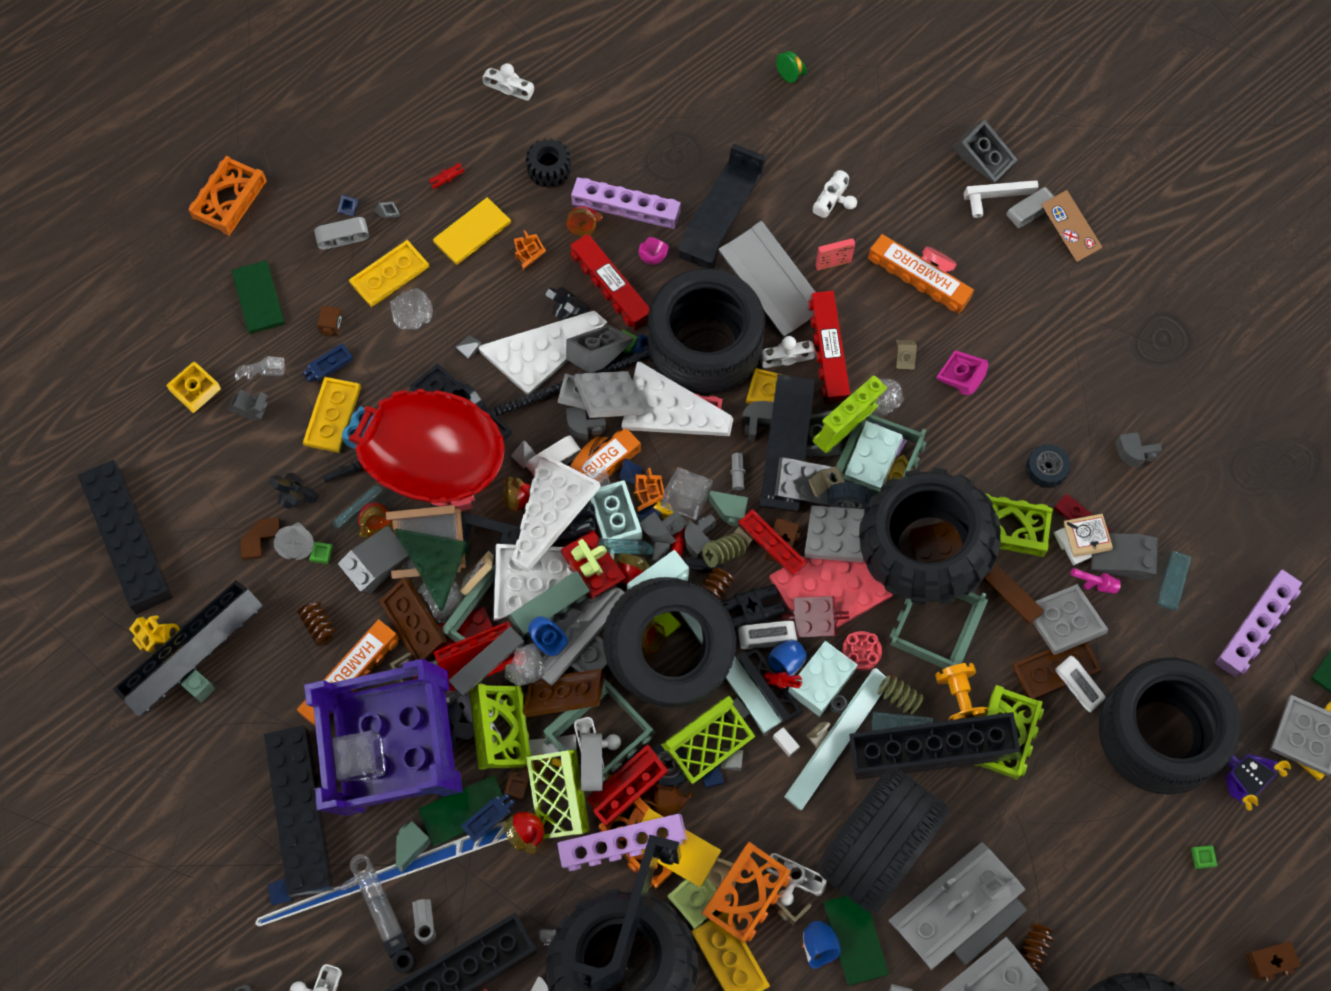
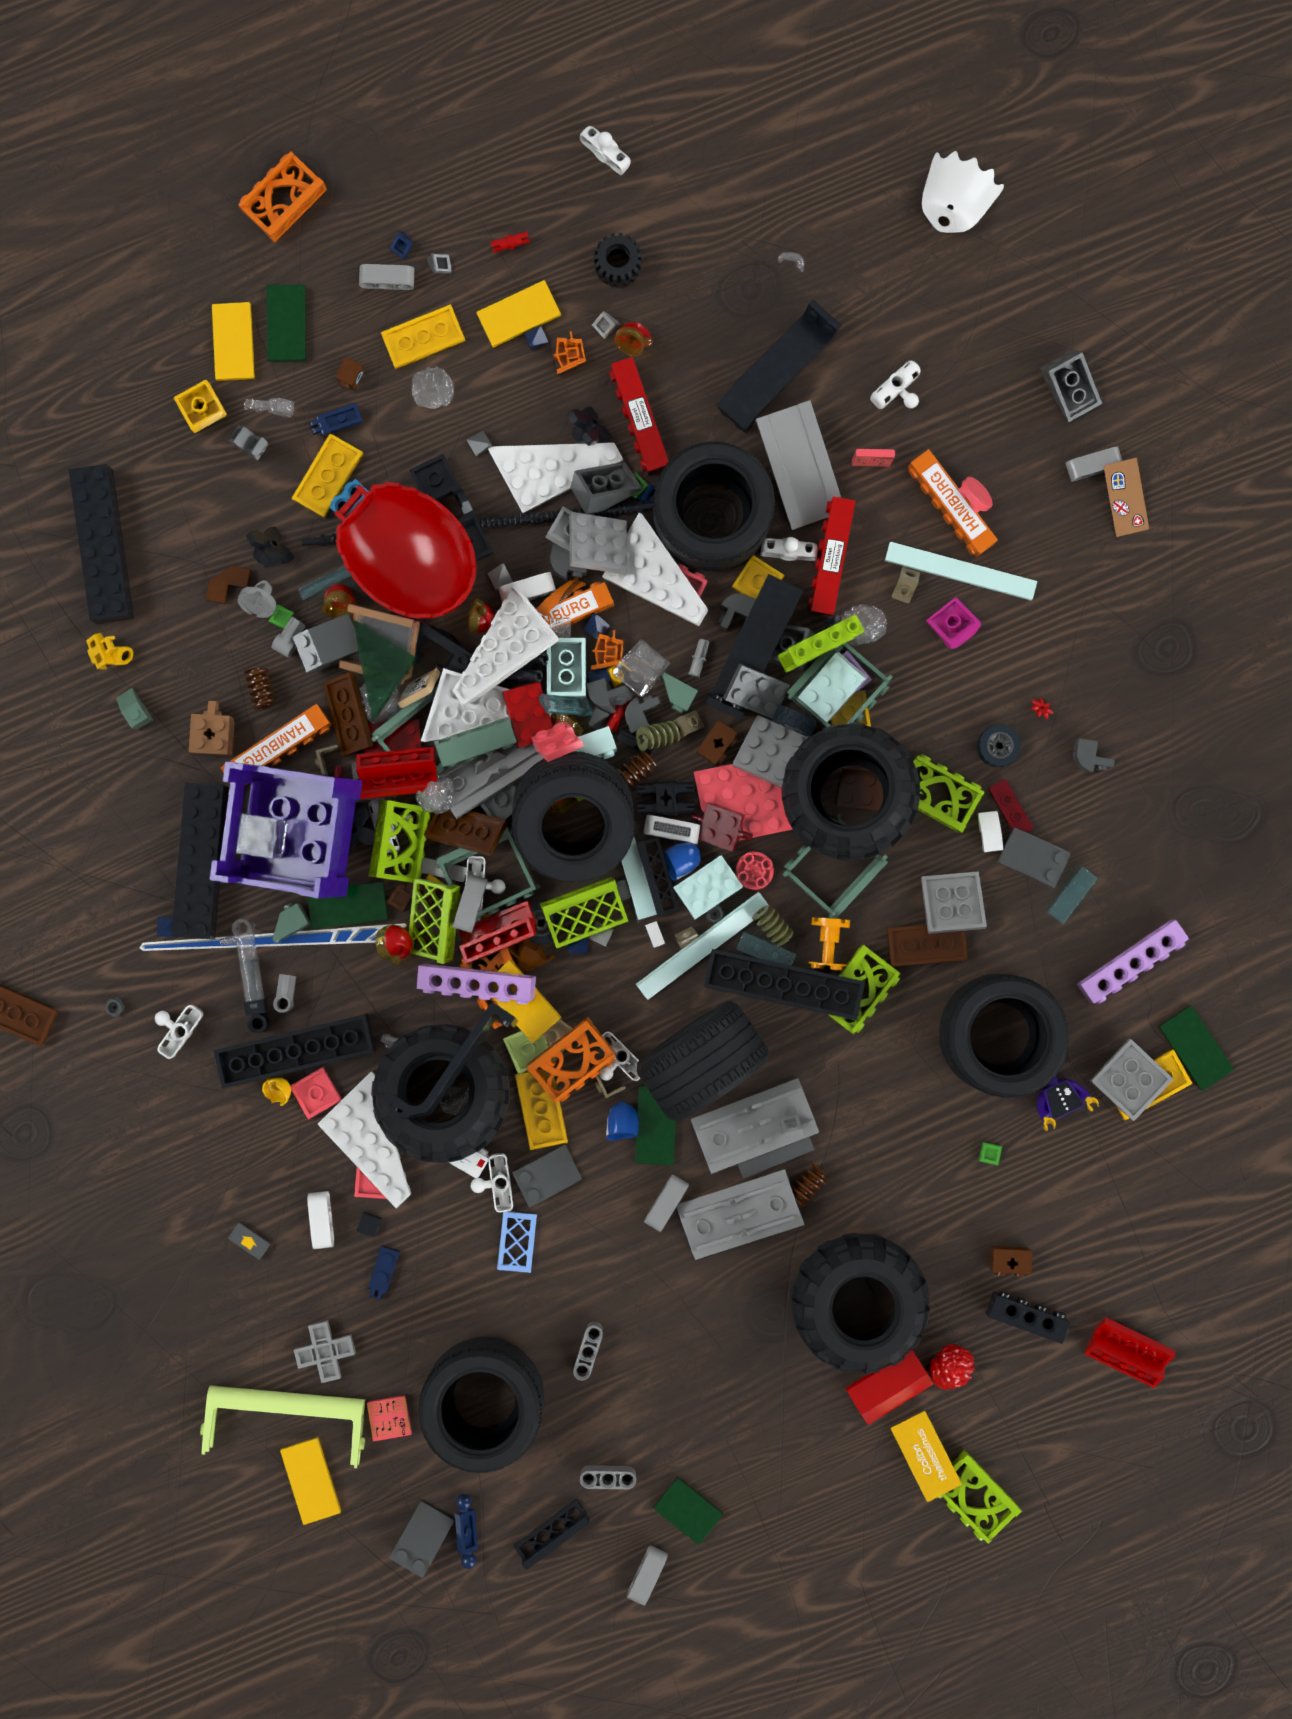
camera: 15 degrees right, 20 degrees up
(187, 648) = (134, 677): black brick -> none
(211, 326) = (233, 341): none -> yellow tile
(272, 672) = (208, 722): none -> medium nougat hinge
(332, 573) = (284, 642): none -> light grey piece
(486, 661) = (400, 783): dark grey tile -> none
(488, 817) = (365, 920): dark blue hinge -> none
(493, 246) = (536, 337): none -> dark blue slope
(547, 635) = (463, 774): blue piece -> none
(553, 218) = (605, 324): none -> light grey slope
(583, 551) = (526, 720): yellowish green hips -> none
(628, 575) = (556, 741): none -> coral plate
(633, 209) = (720, 361): lavender brick -> none
(653, 251) = (693, 394): dark pink hair -> none
(702, 121) = (791, 256): none -> clear piece
(772, 543) = (705, 744): red tile -> none
(783, 680) = (669, 879): red pin -> none
(790, 66) = (905, 221): green piece -> none
(820, 481) = (772, 698): dark tan bracket -> none
(826, 25) = (962, 186): none -> white piece
(950, 328) = (960, 571): none -> light aqua tile
(976, 193) = (1042, 430): white piece -> none
(1013, 595) = (914, 865): reddish brown tile -> none
(1073, 422) = (1041, 708): none -> red plant
(1080, 683) = (941, 968): white beam -> none
(1088, 535) = (1006, 829): tile -> none
(1104, 583) = (1004, 879): dark pink piece -> none

